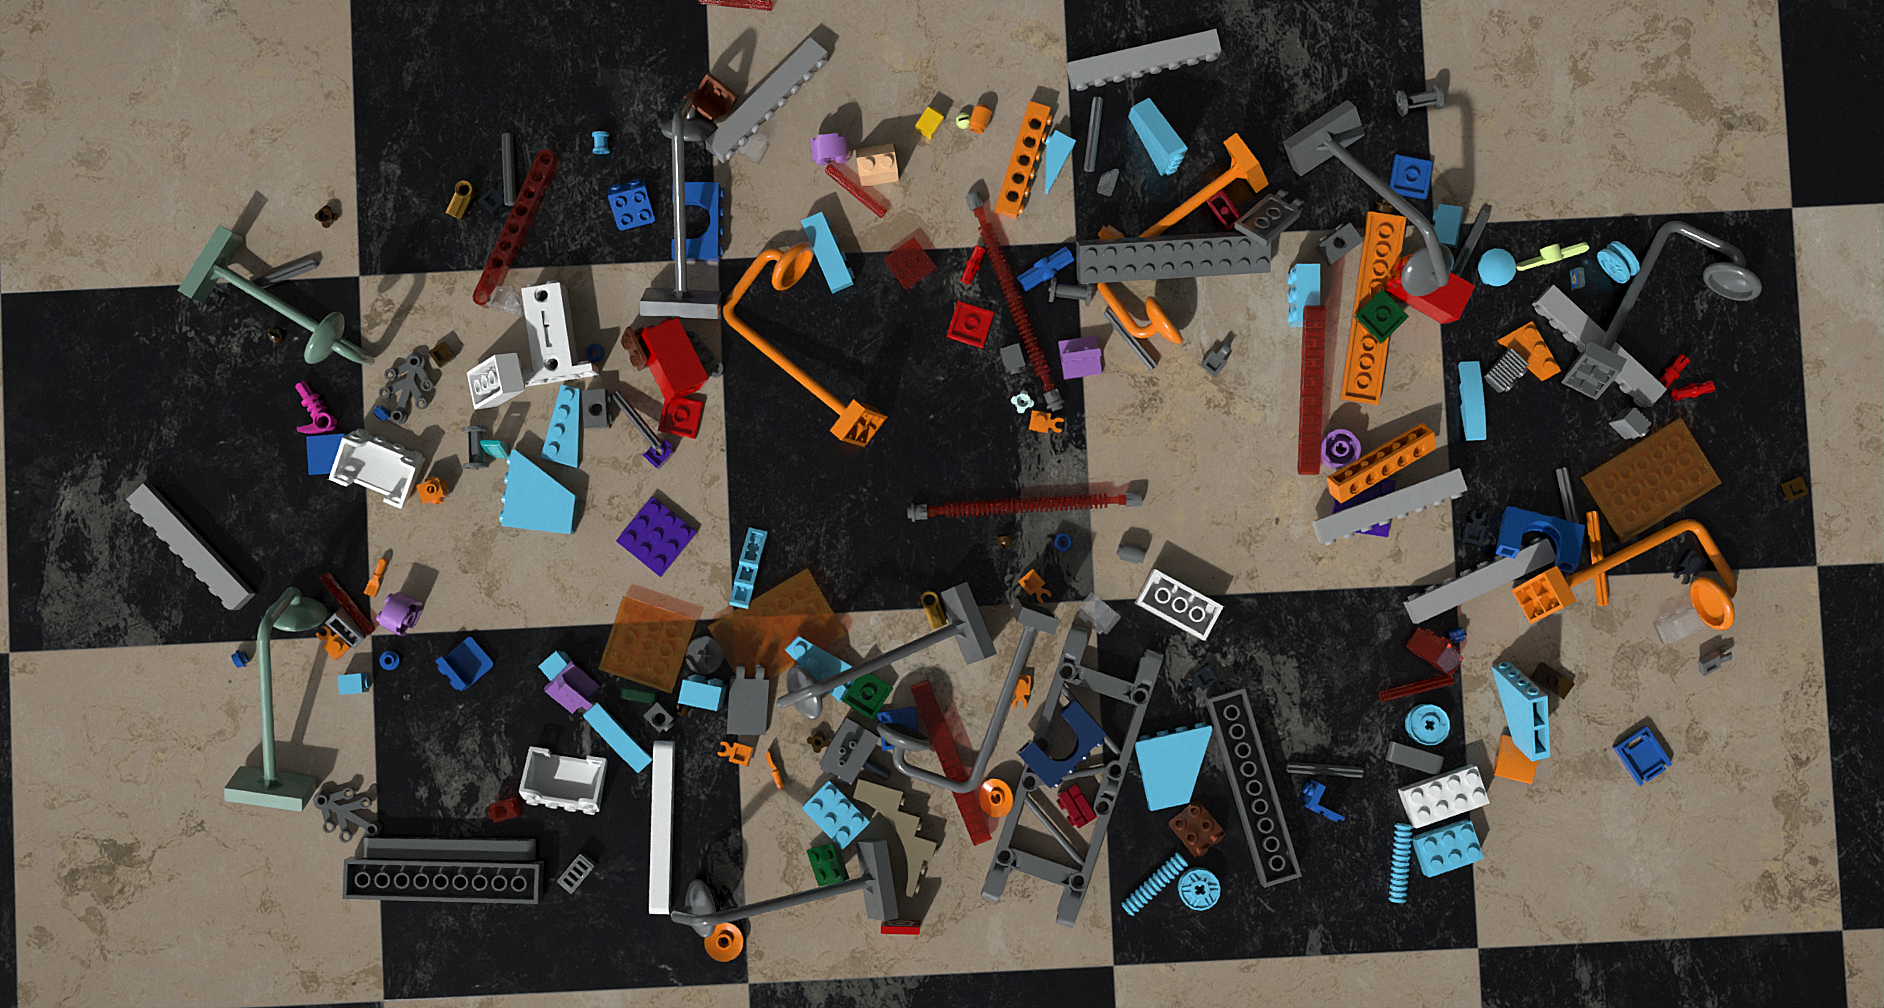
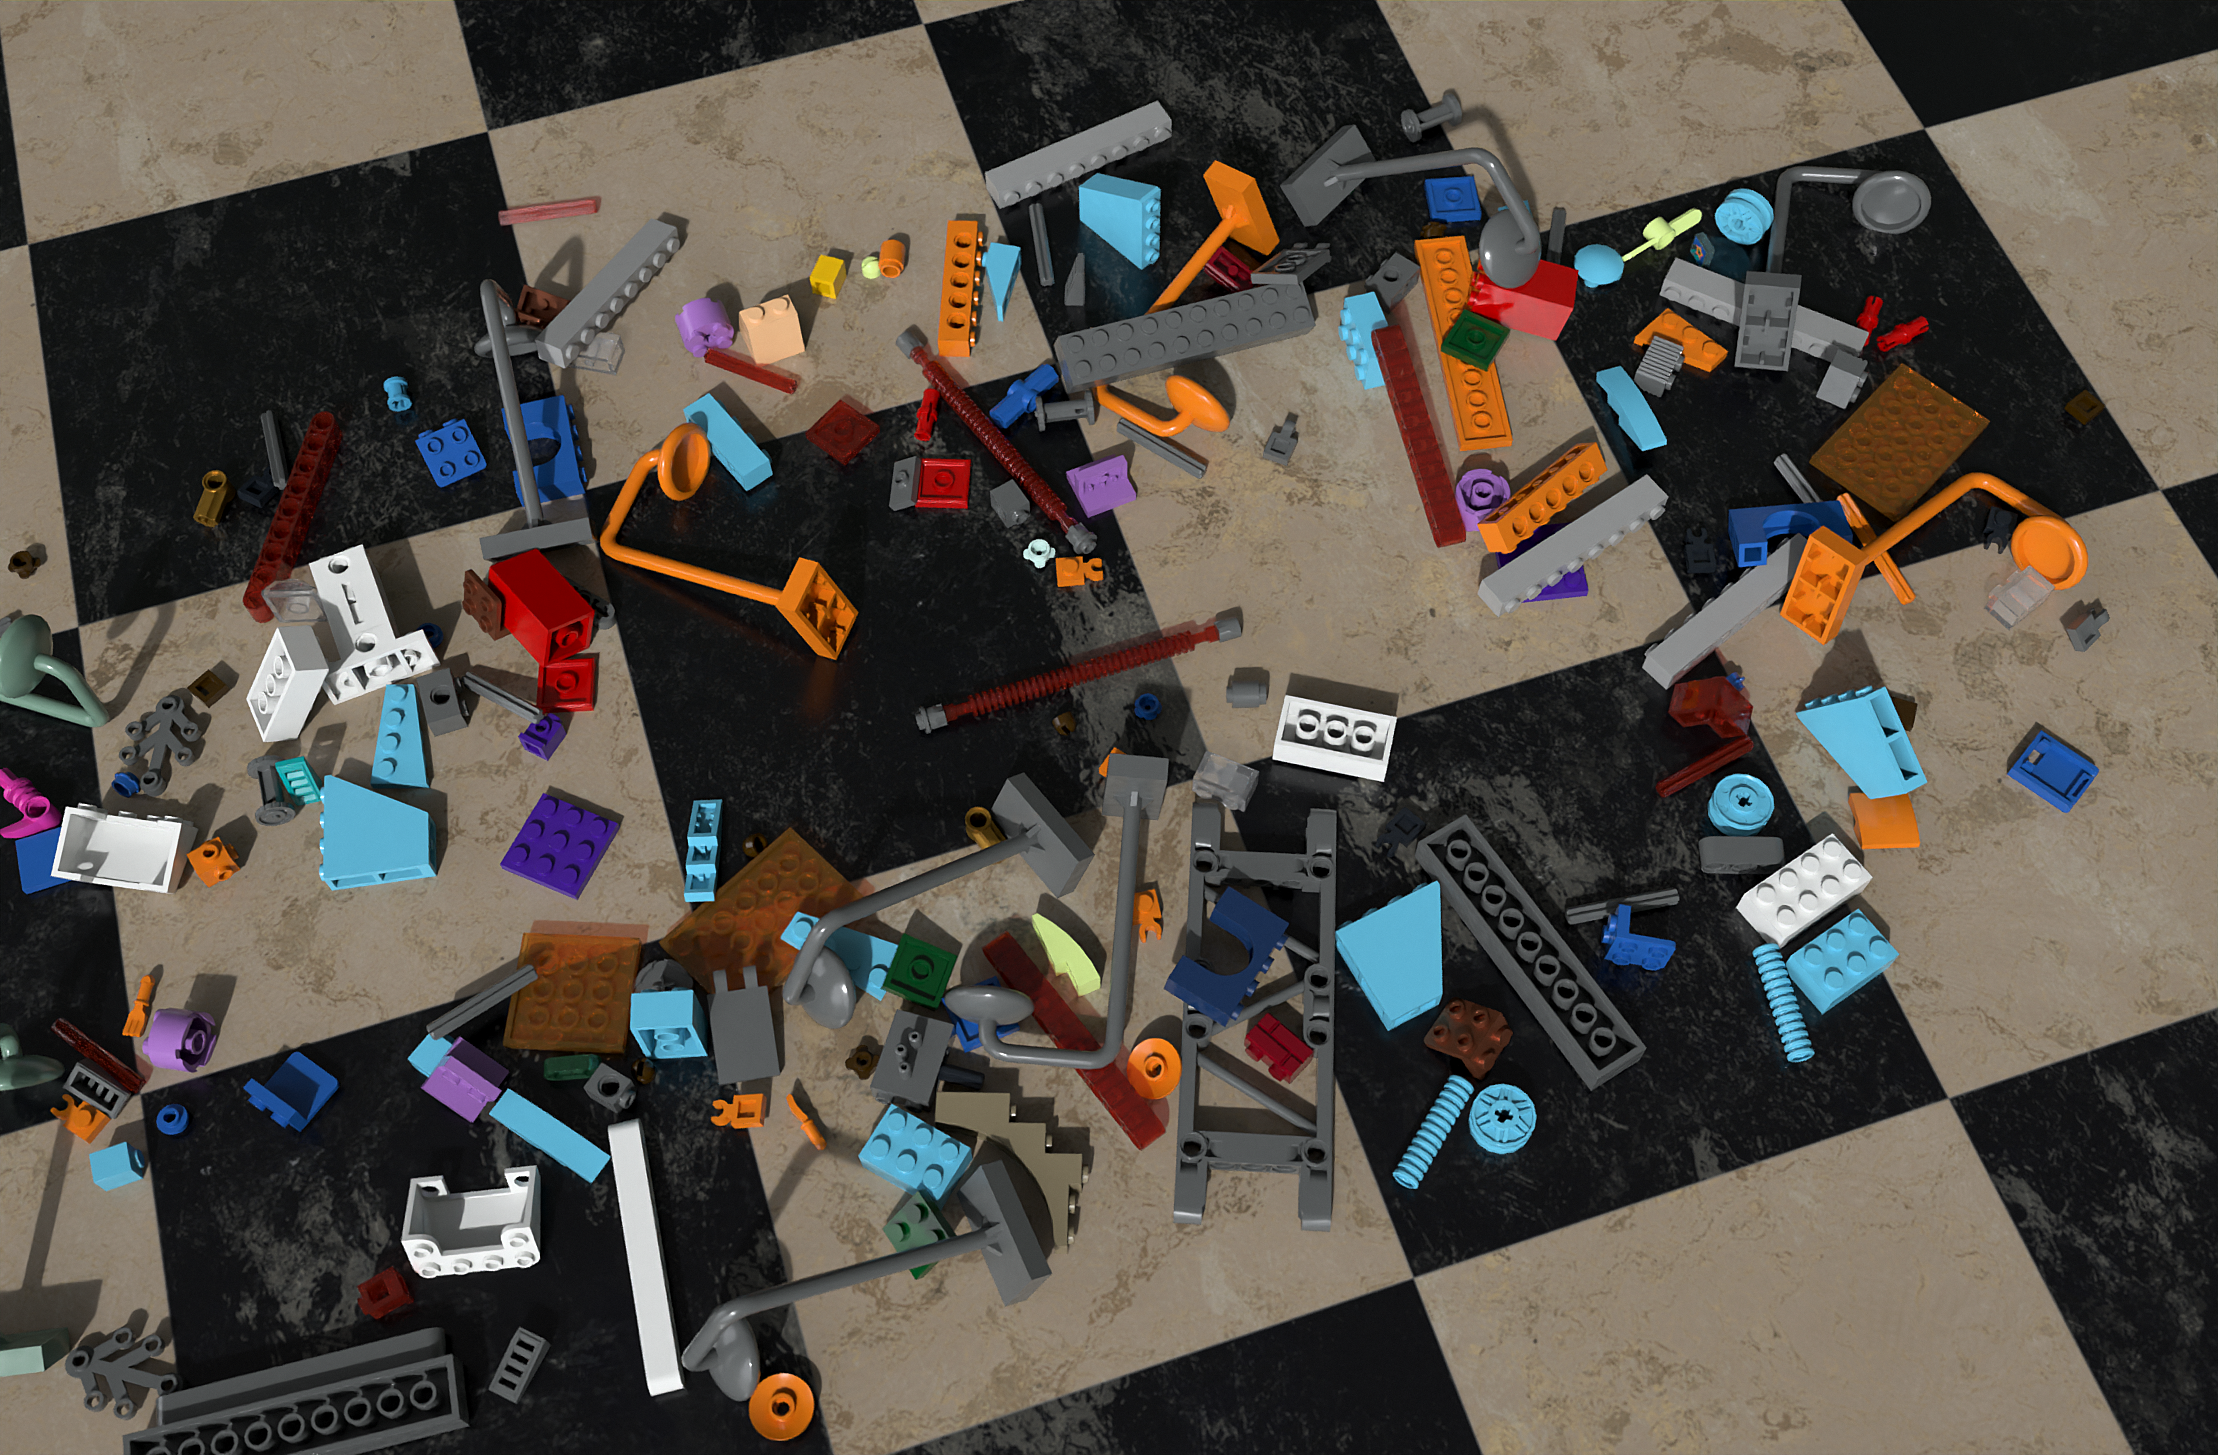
camera: 15 degrees left, 25 degrees down
(590, 641) = (482, 1002): none -> dark grey axle
(782, 573) = (754, 844): none -> dark brown hinge
(902, 927) = (1060, 1297): red tile -> none
(943, 319) = (905, 483): none -> dark grey plate
(962, 707) = (1066, 956): none -> yellowish green slope

